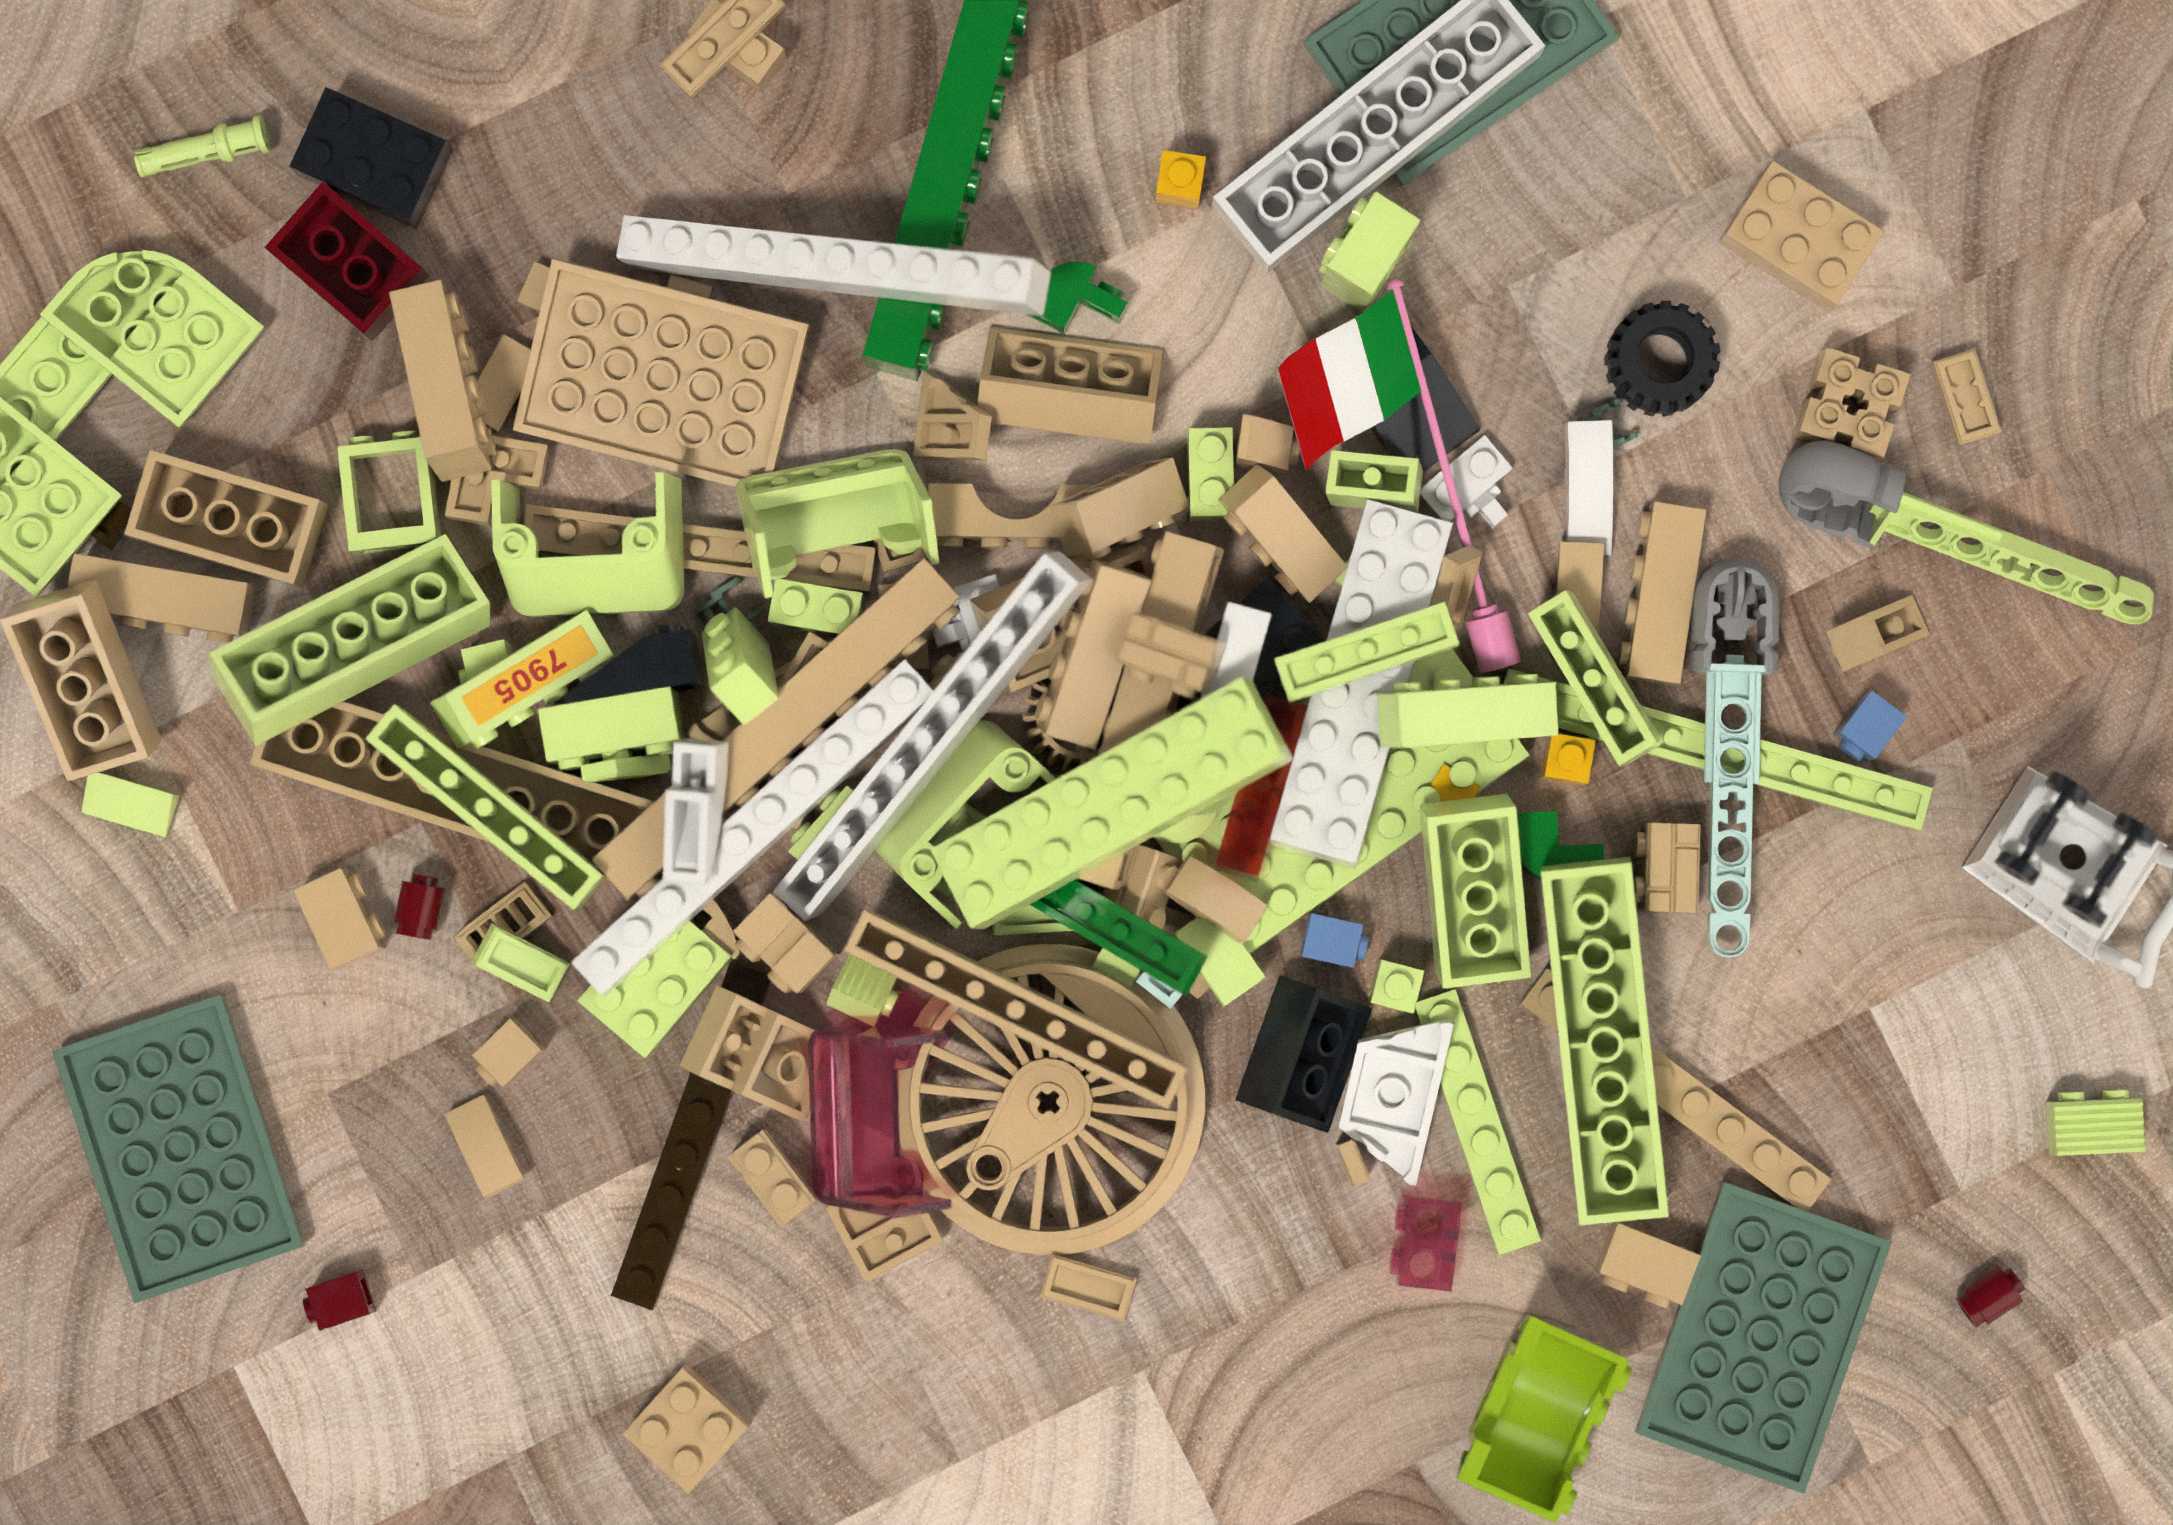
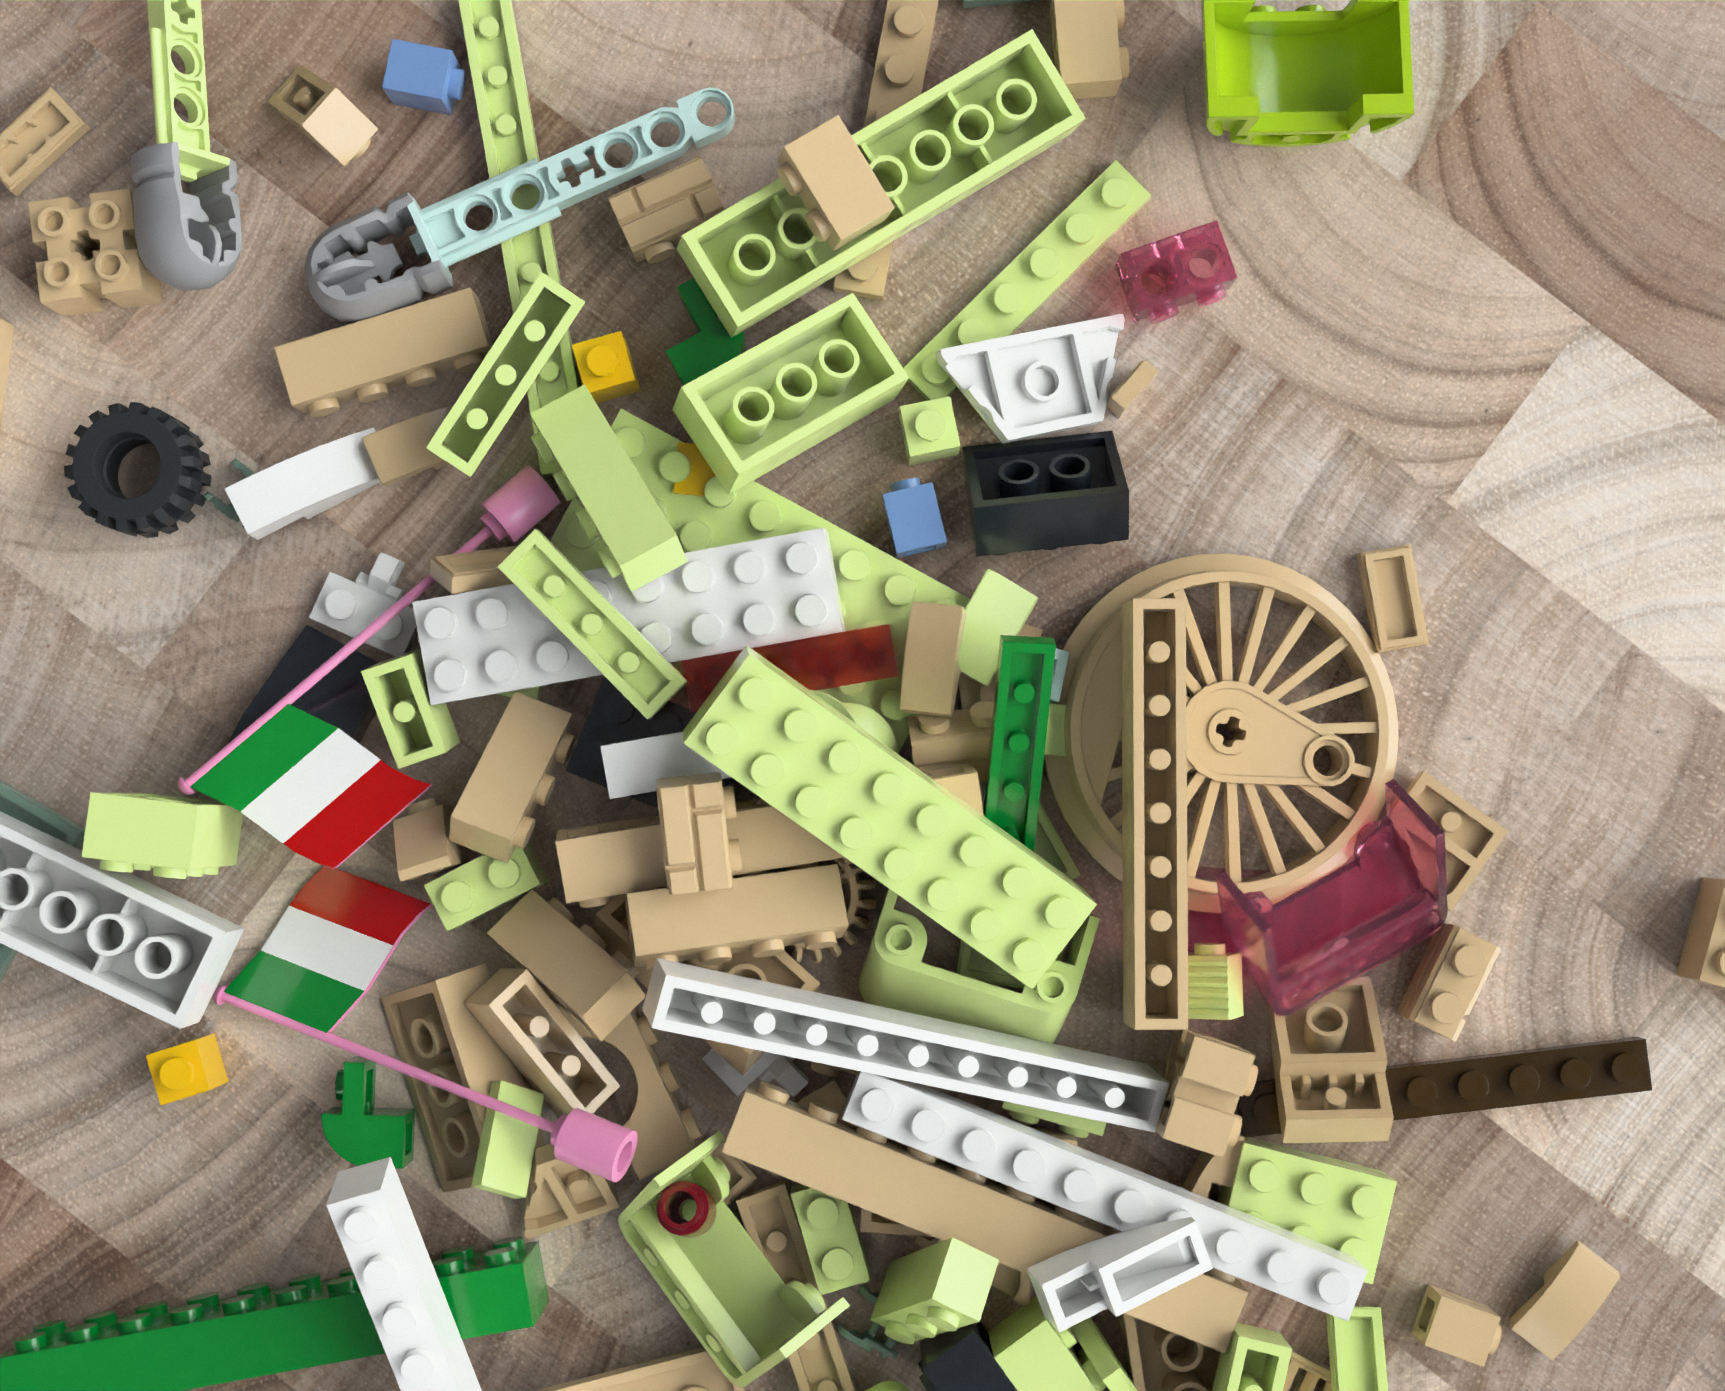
camera: 115 degrees left, 0 degrees up
(902, 504) = (670, 1208): none -> dark red brick
(1008, 400) = (507, 1143): none -> yellowish green tile
(1067, 459) = (541, 1042): none -> tan brick
(1212, 325) = (327, 960): none -> flag
(1613, 996) = (833, 184): none -> tan brick

